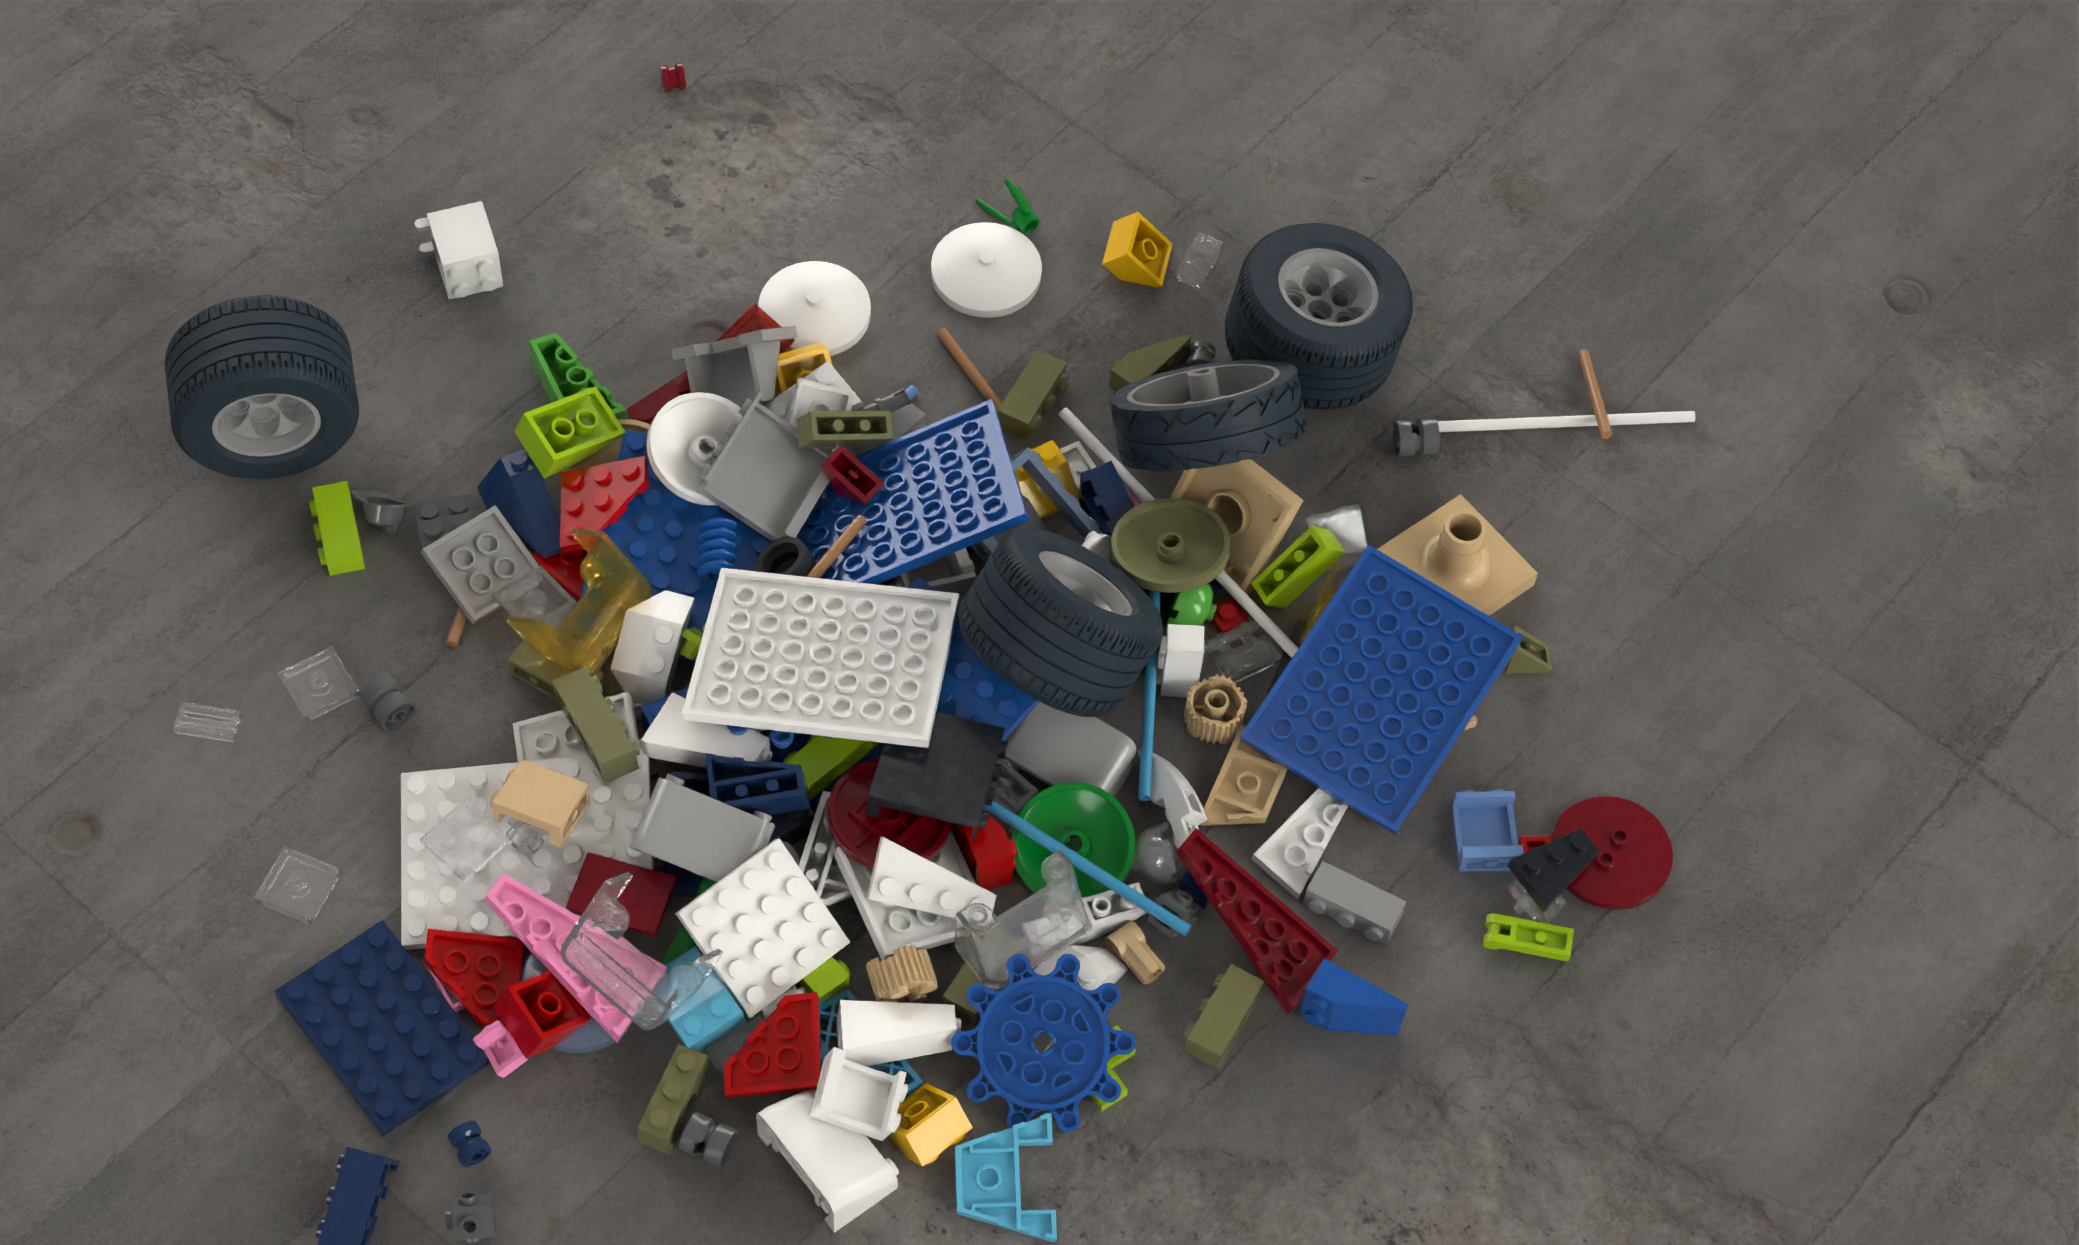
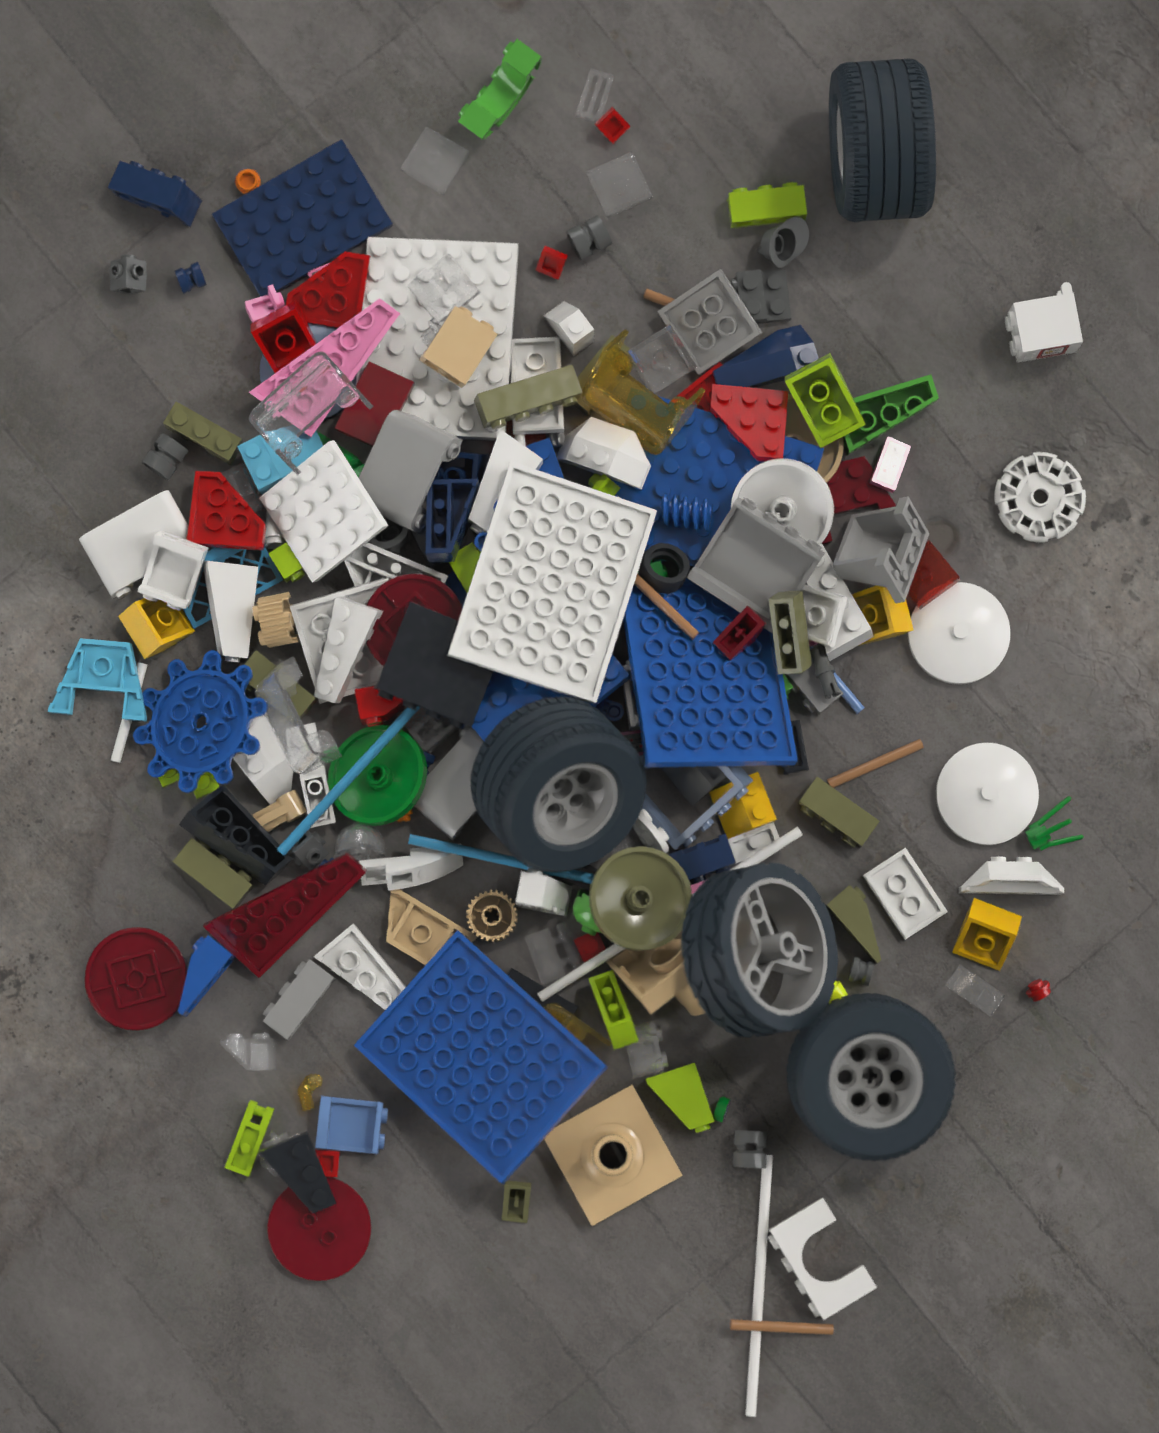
camera: 100 degrees right, 25 degrees up
(200, 808) = (504, 92): none -> bright green brick
(245, 694) = (612, 125): none -> red plate
(335, 1095) = (247, 180): none -> orange plate
(421, 739) = (551, 262): none -> red plate
(500, 702) = (571, 327): none -> white slope
(634, 383) = (890, 464): none -> tile
(656, 262) = (1040, 512): none -> white plate
(1065, 1148) = (125, 724): none -> white bar
(1074, 238) = (1012, 878): none -> white wedge
(1107, 332) = (904, 893): none -> white tile
(1173, 989) = (236, 835): none -> black wedge
(1187, 204) = (1038, 989): none -> red plate
(1368, 1088) = (135, 978): none -> dark red plate
(1378, 470) = (721, 1109): none -> green tile
(1379, 501) = (684, 1096): none -> lime slope
(1428, 935) = (254, 1053): none -> clear slope
(1456, 884) = (306, 1089): none -> clear yellow arm
(1501, 393) = (825, 1296): none -> white arch

